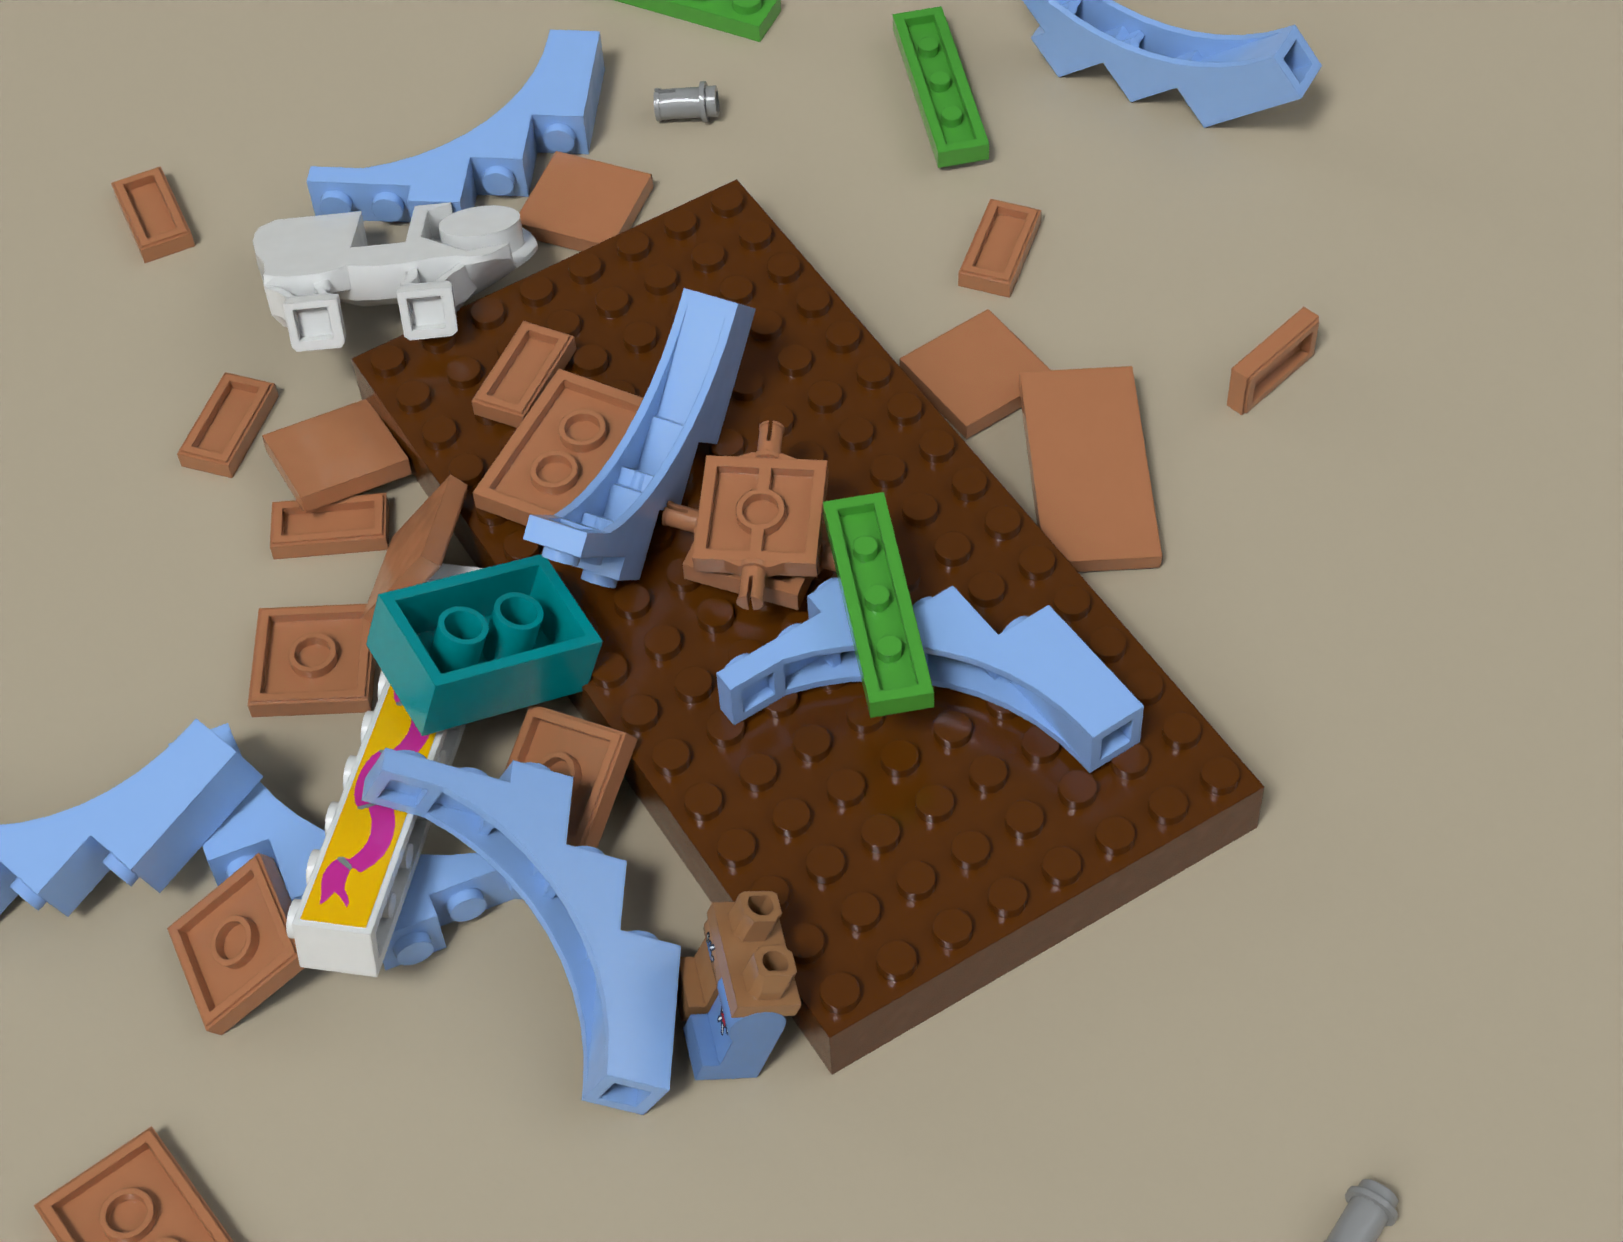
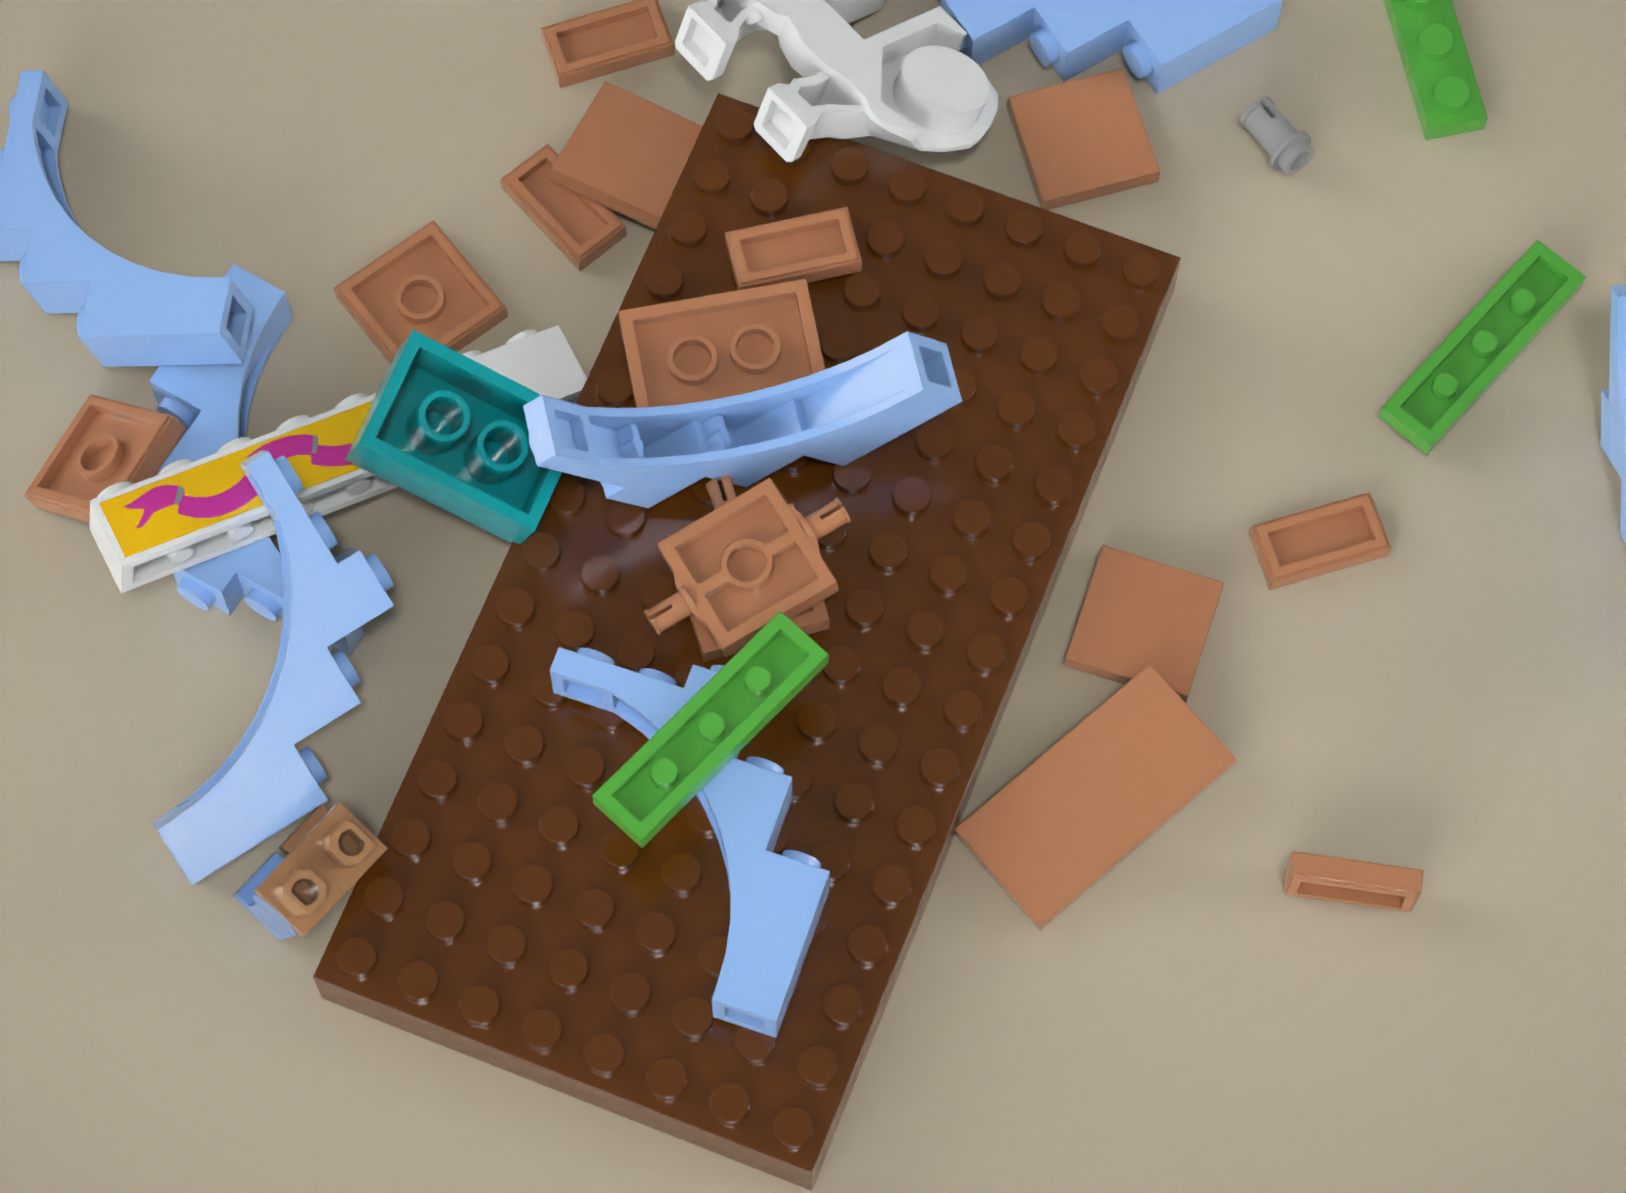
camera: 50 degrees right, 15 degrees up
(420, 543) = (559, 304): nougat tile -> none
(582, 750) = (433, 592): nougat tile -> none

